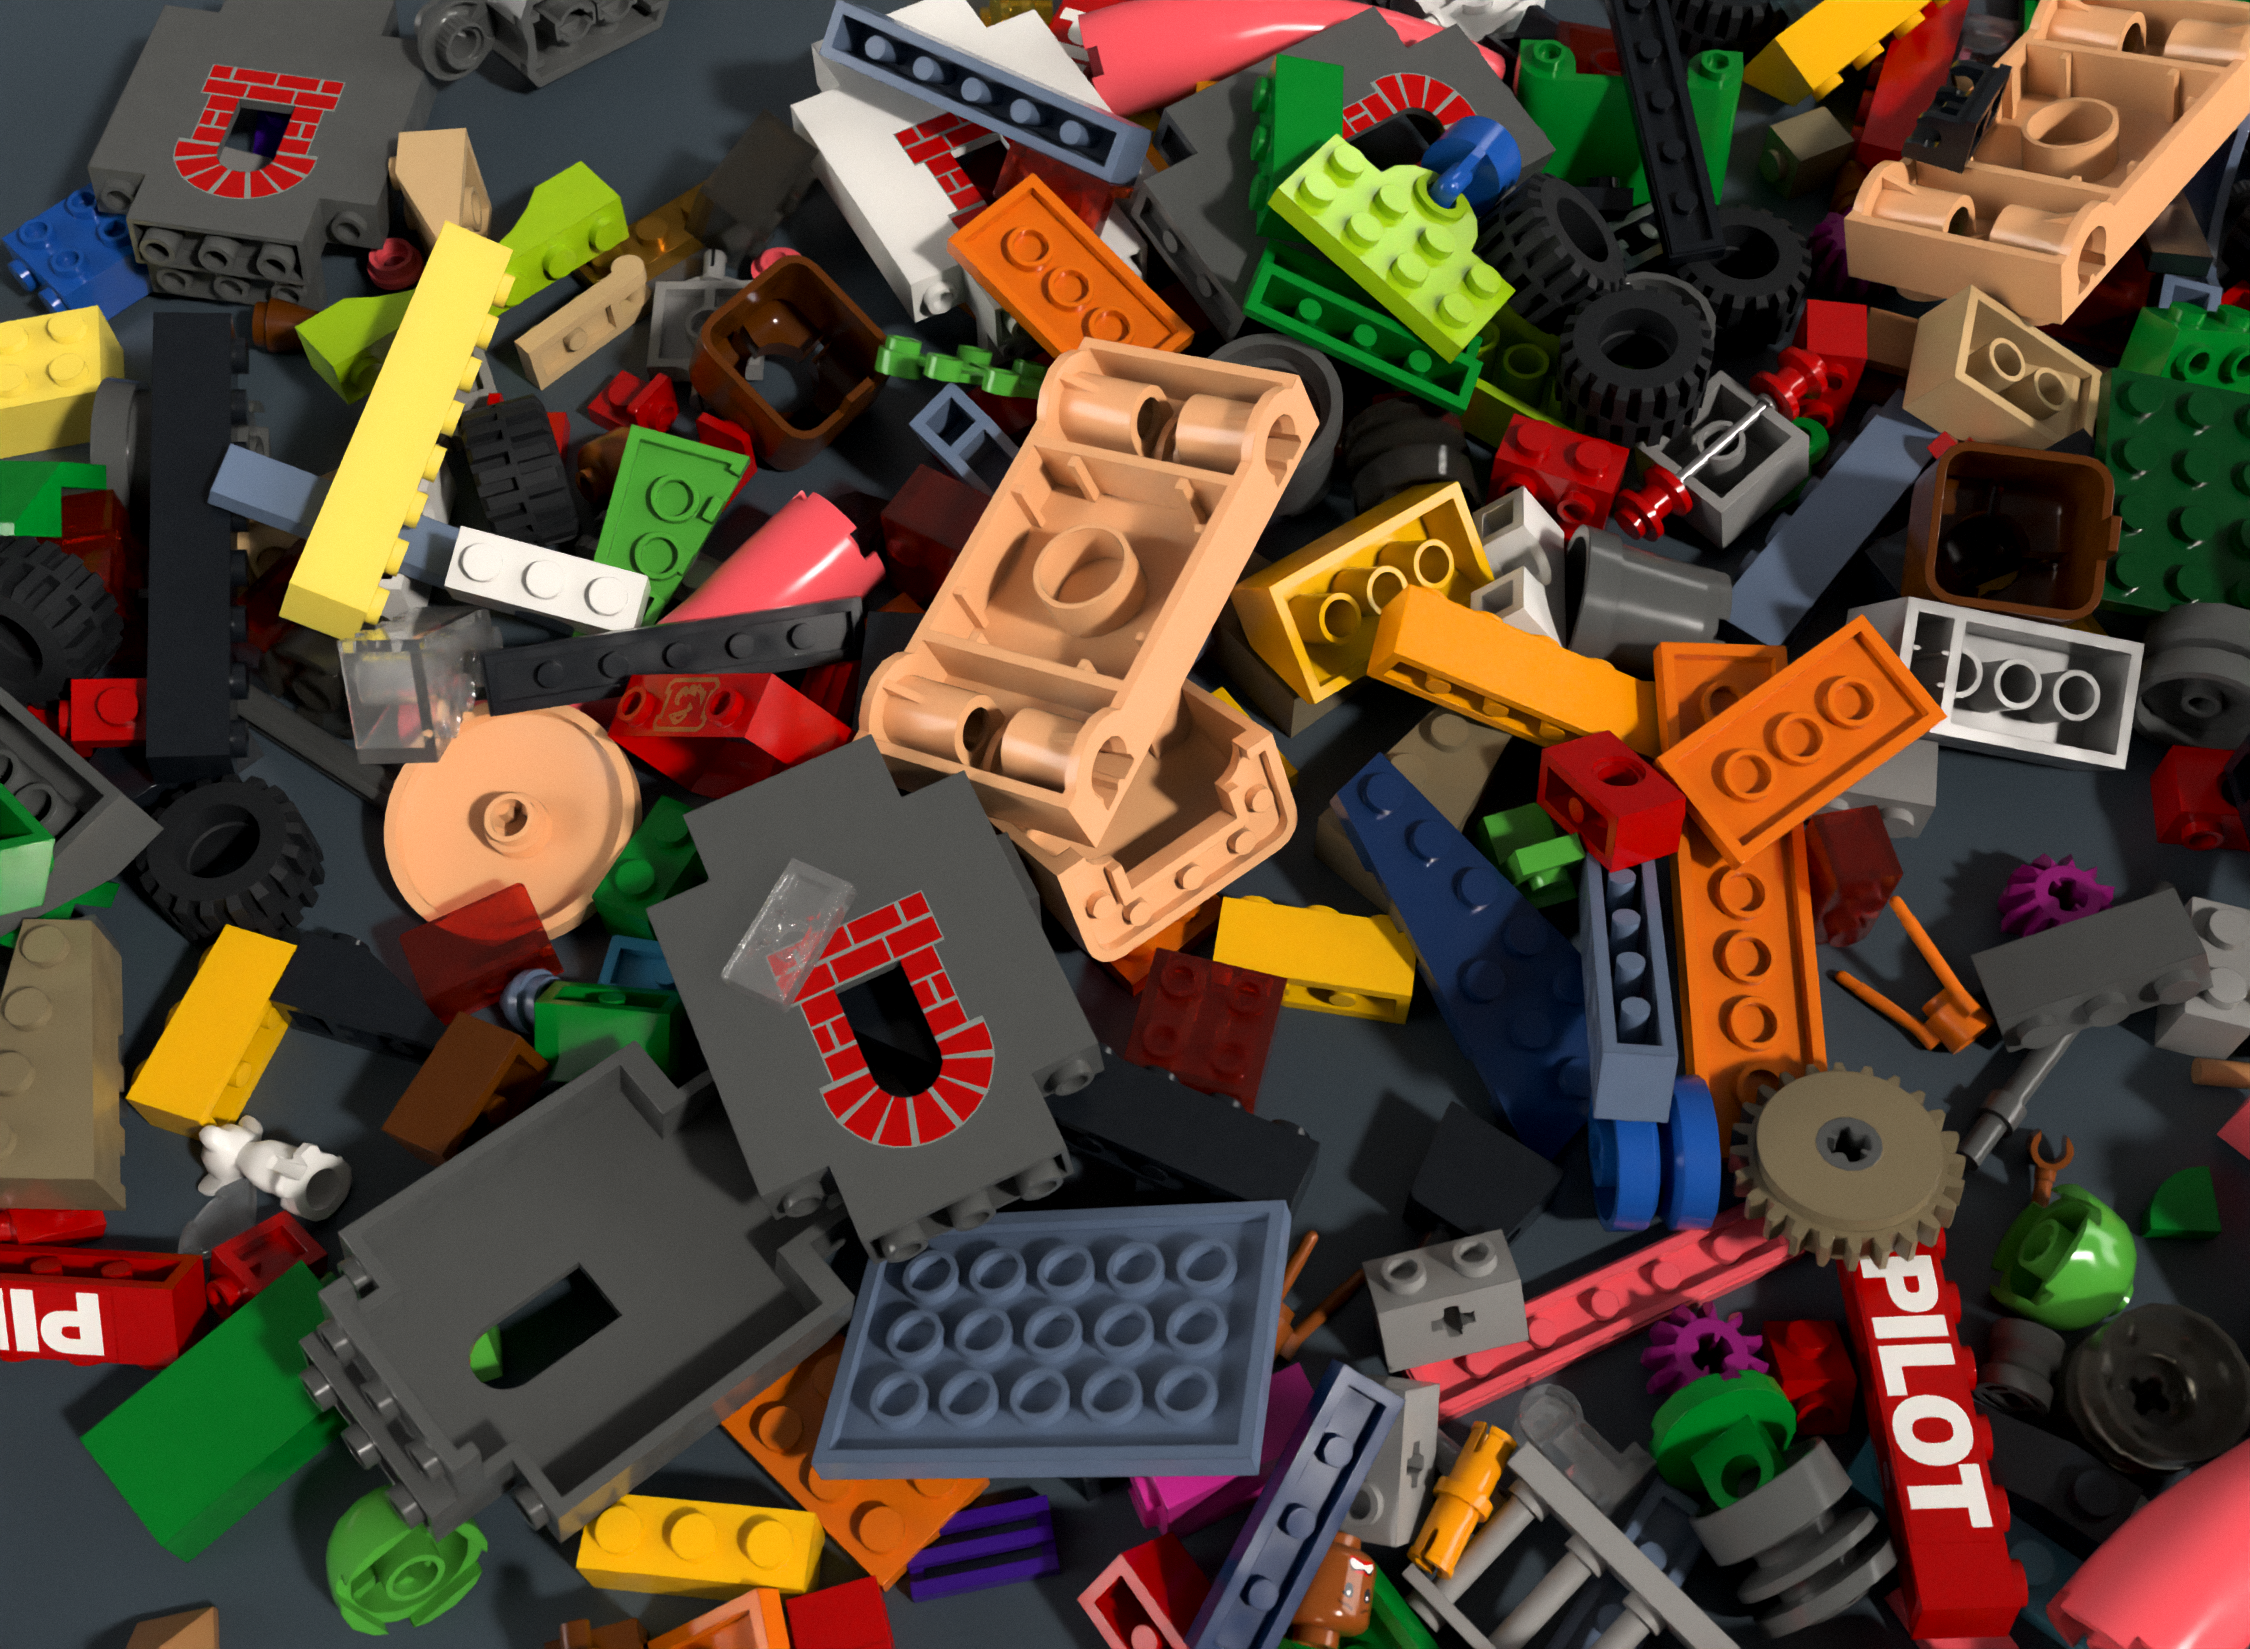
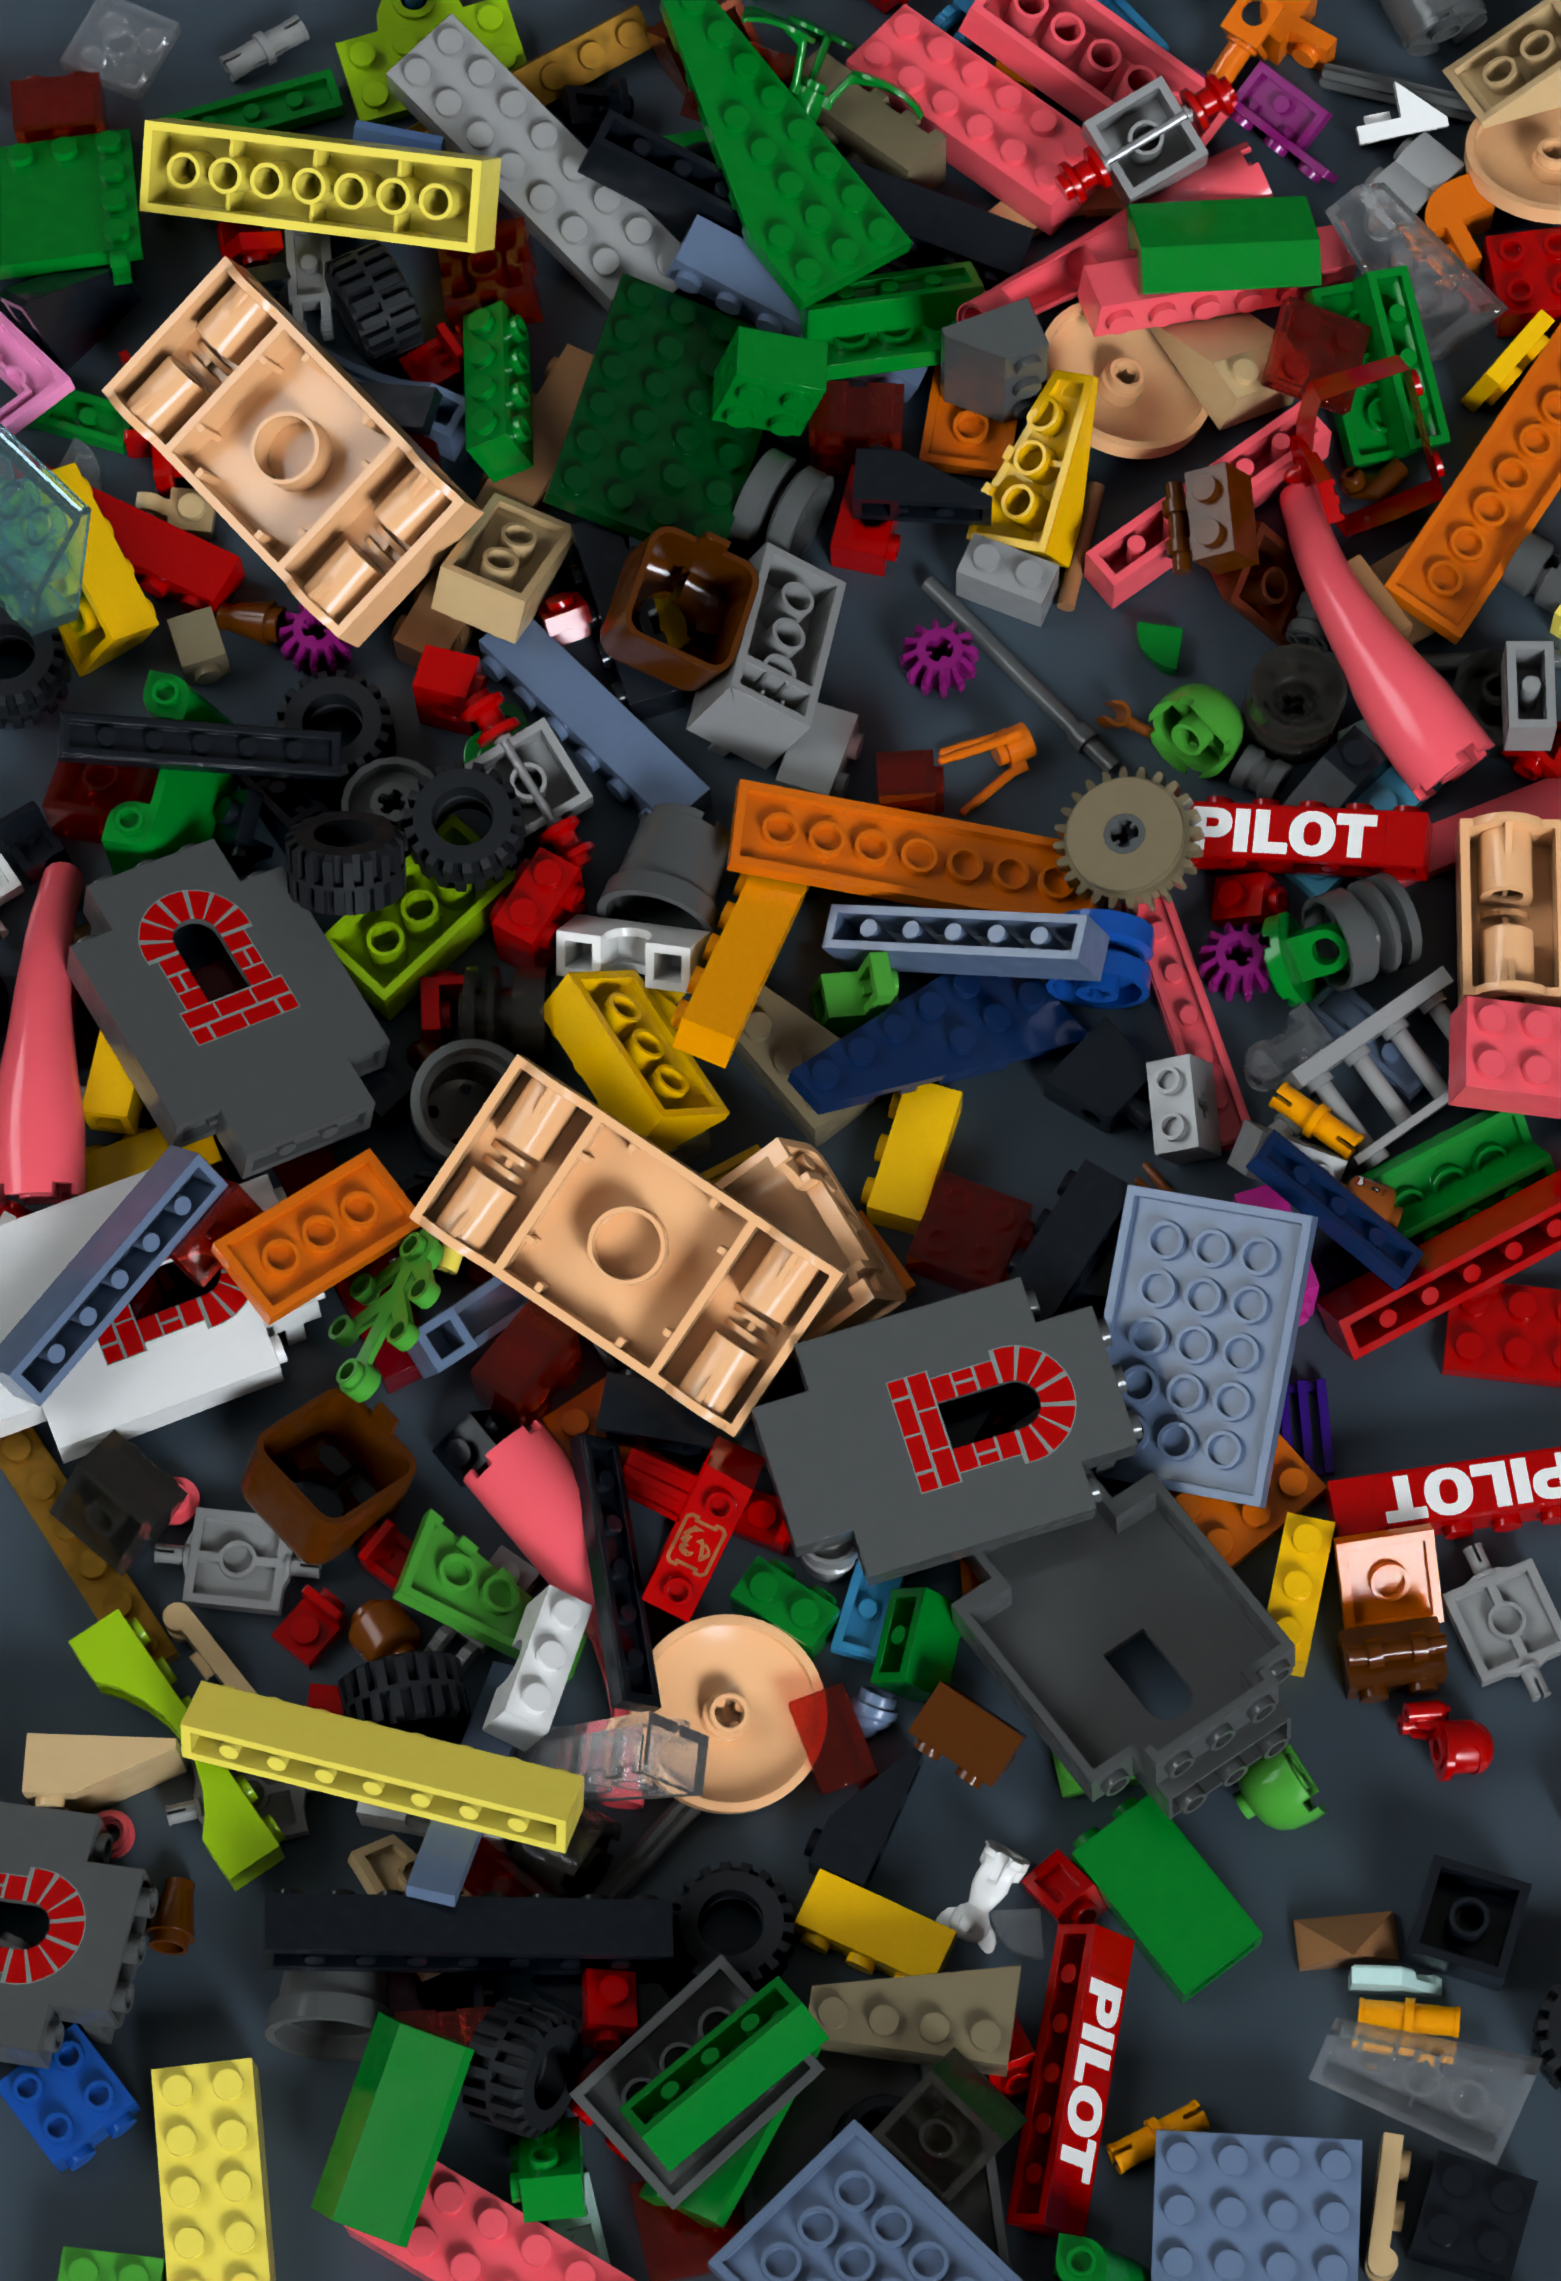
camera: 80 degrees left, 10 degrees up
(789, 935) = (915, 1469): clear plate -> none
(1298, 114) = (235, 1029): green brick -> none
(1348, 323) = (404, 1018): green slope -> none
(1412, 226) = (331, 965): lime plate -> none
(1611, 800) = (872, 924): red brick -> none
(1799, 741) = (827, 789): orange plate -> none
(1957, 118) = (265, 528): black hinge -> none
(2093, 971) = (1005, 651): dark grey brick -> none

